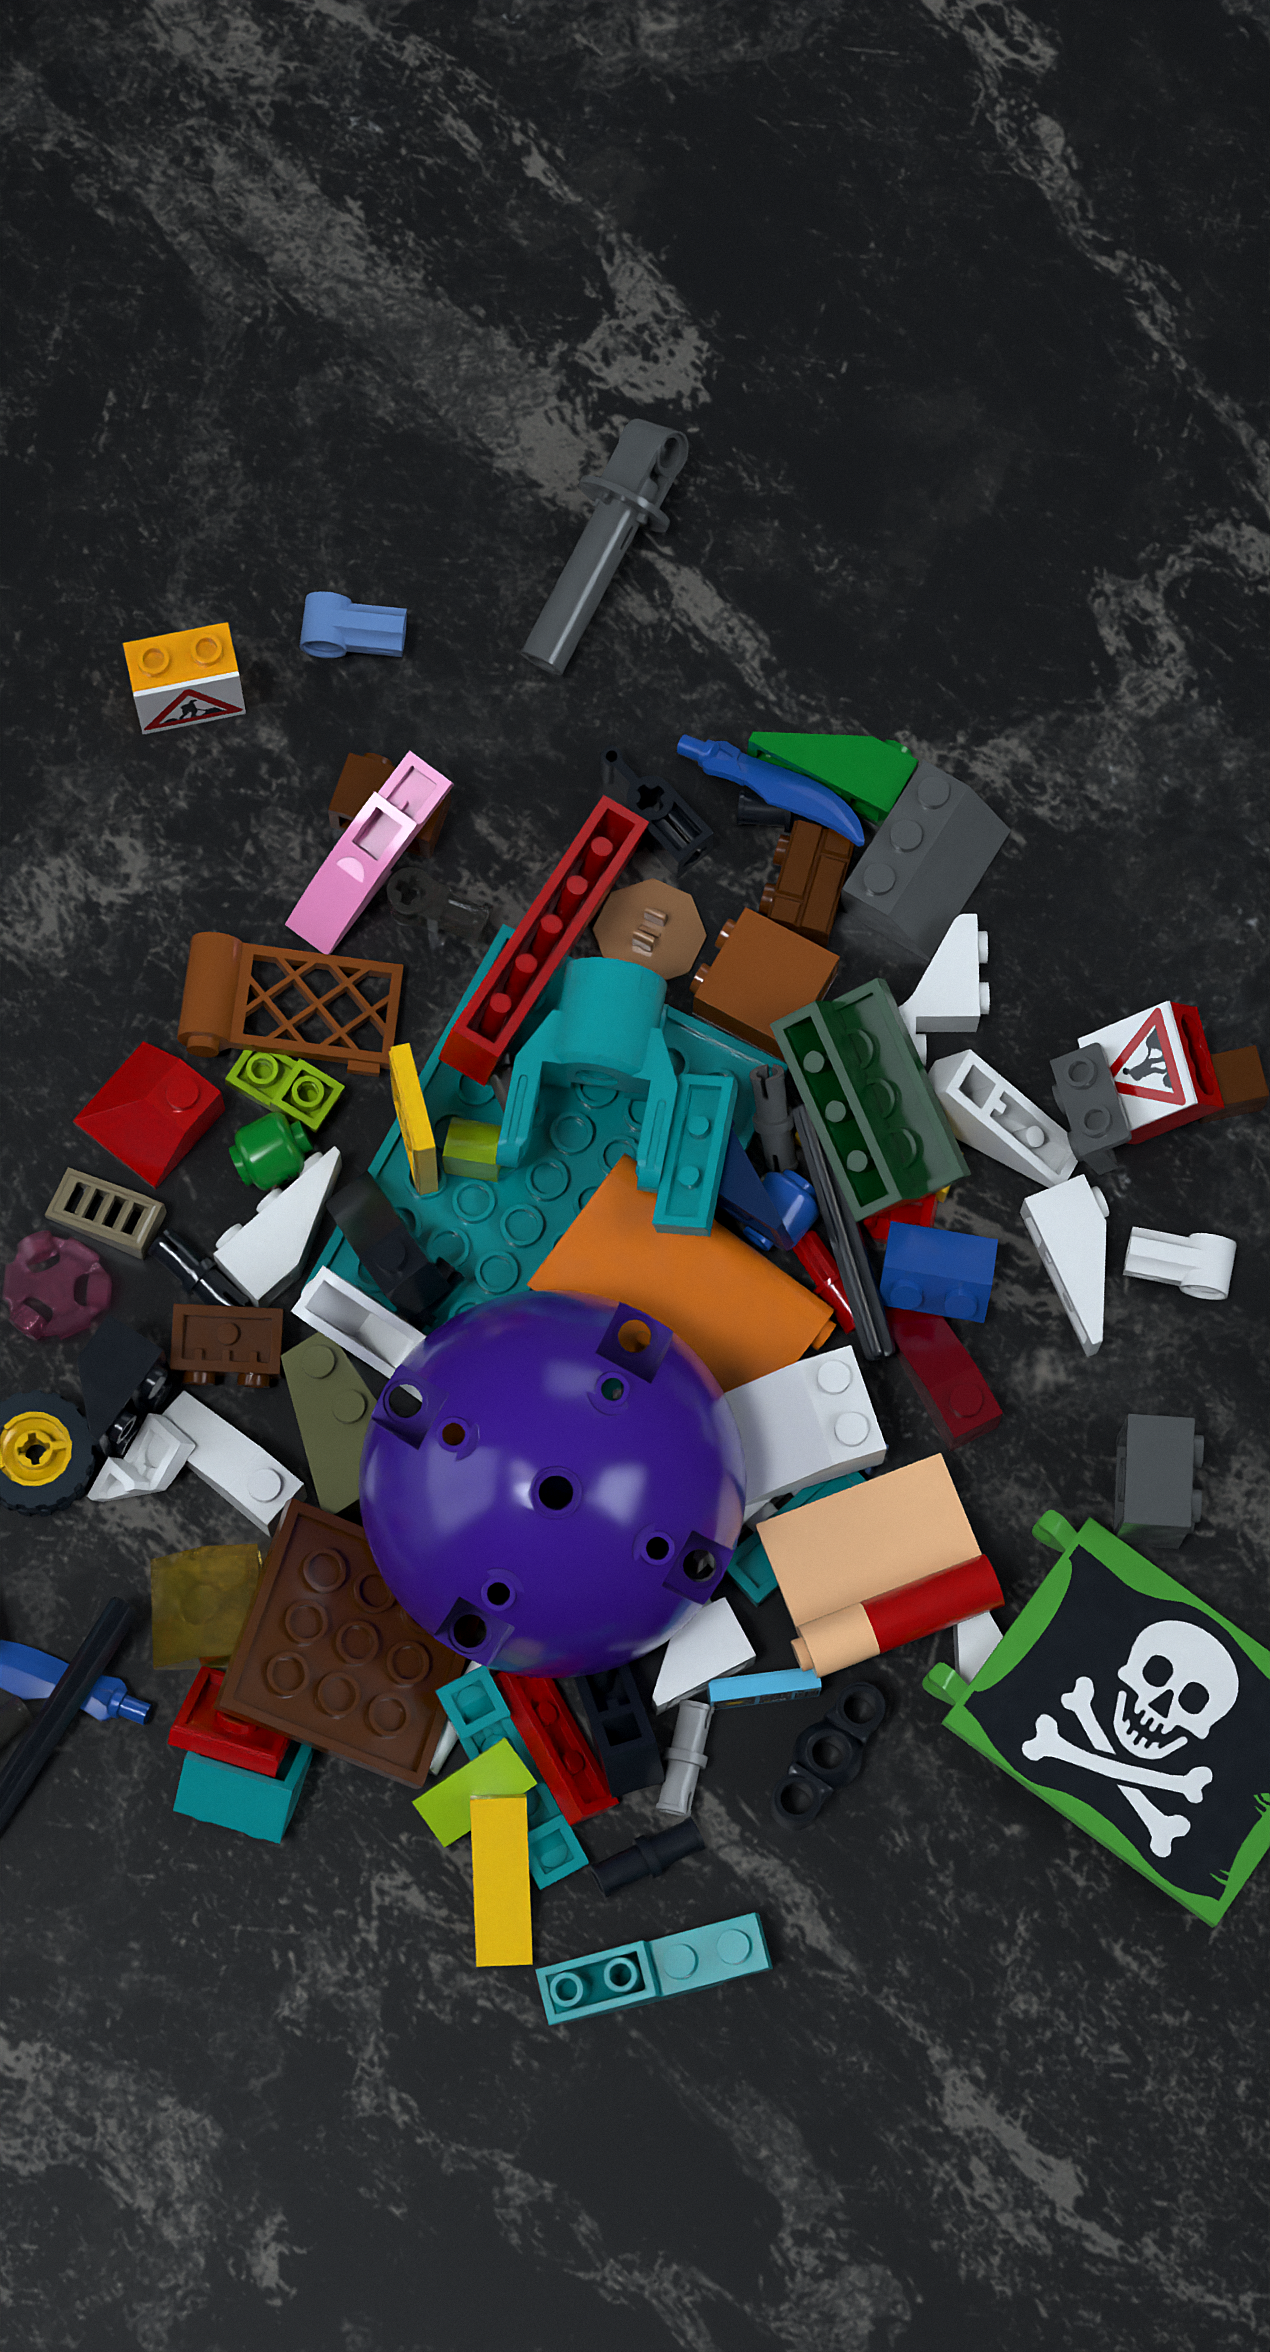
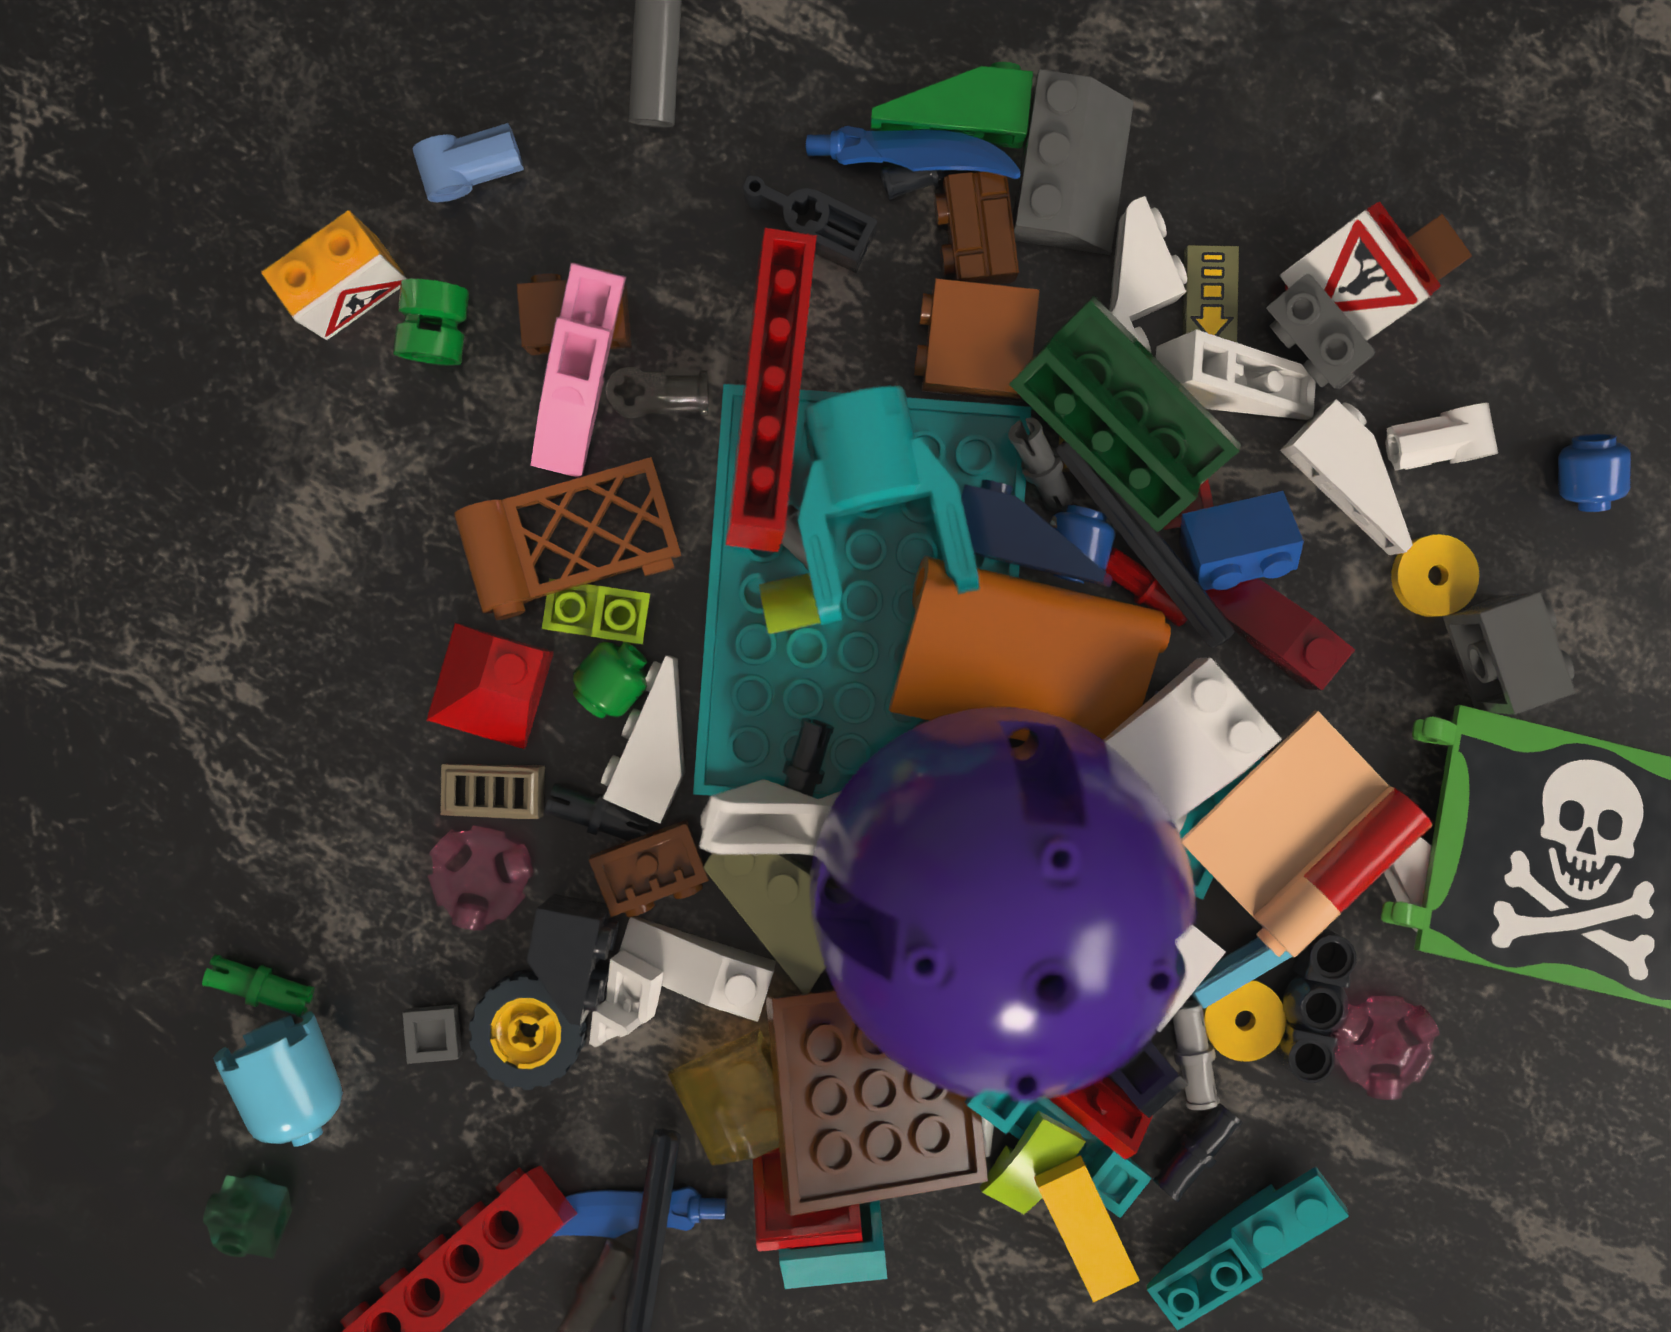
camera: 20 degrees left, 15 degrees up
(255, 750) = (431, 304): none -> green wheel
(387, 1246) = (752, 733): black slope -> none
(413, 1119) = (727, 614): yellow tile -> none
(651, 928) = (854, 334): medium nougat piece -> none
(695, 1155) = (999, 541): teal plate -> none
(743, 1722) = (1259, 1035): none -> yellow piece
(882, 1831) = (1386, 1045): none -> clear pink piece
(1013, 1031) = (1211, 290): none -> olive tile
(1118, 1367) = (1458, 573): none -> yellow piece

